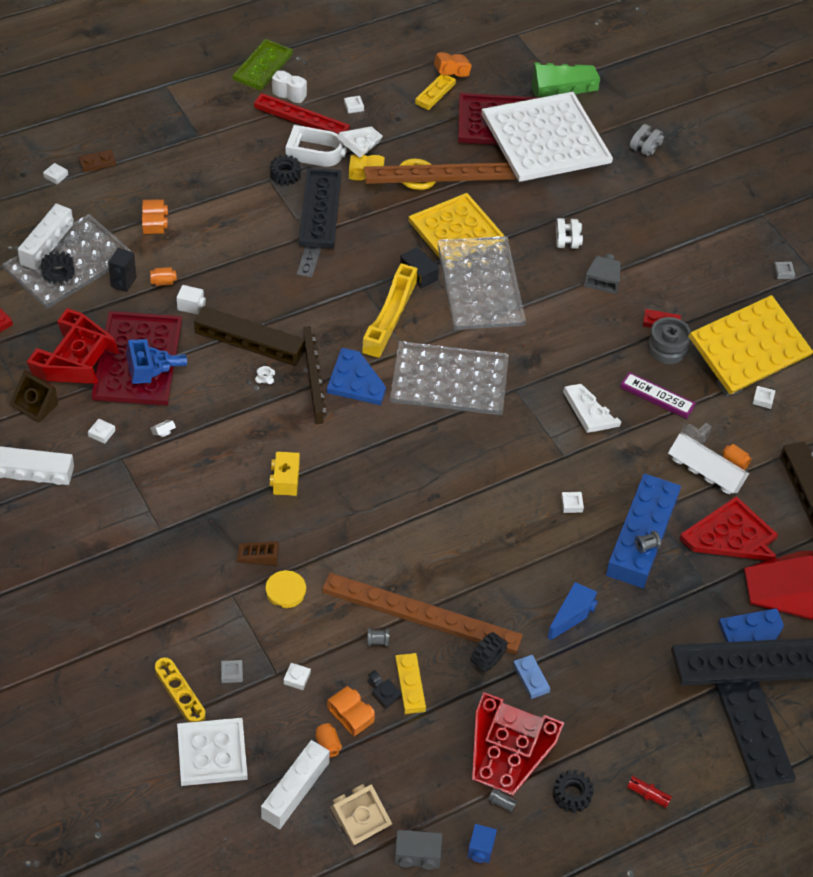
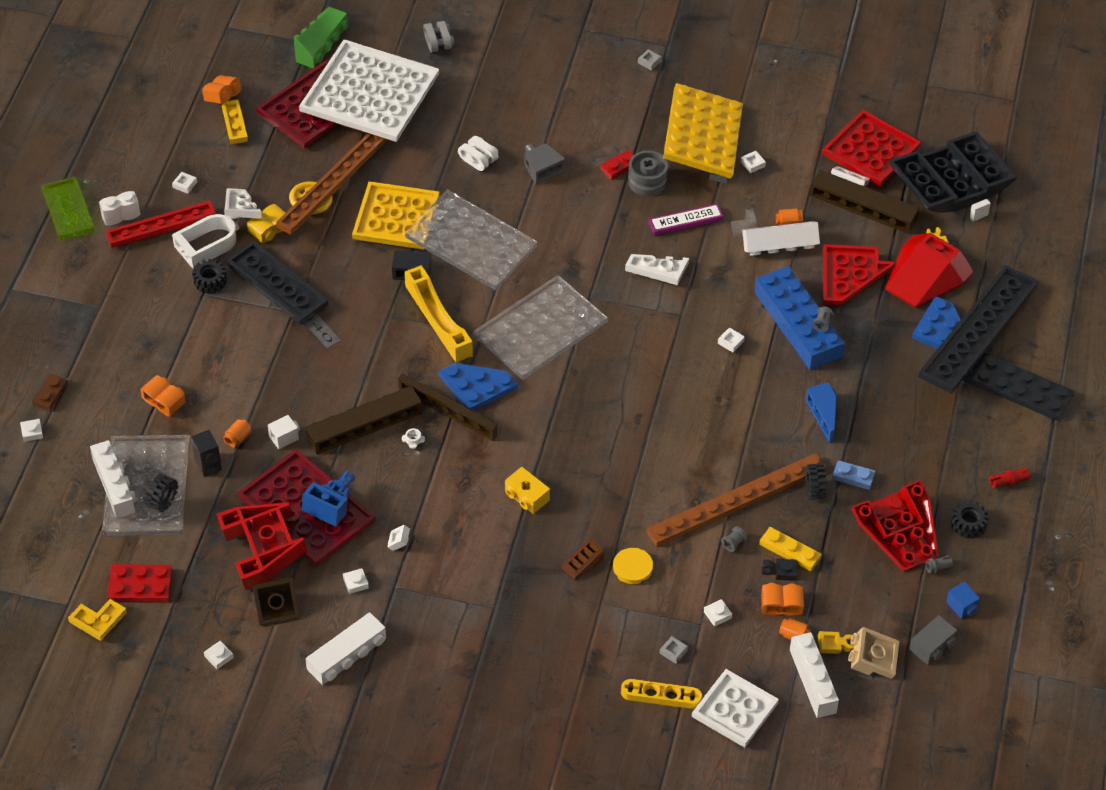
camera: 45 degrees left, 0 degrees up
(343, 775) = (832, 642): none -> yellow plate

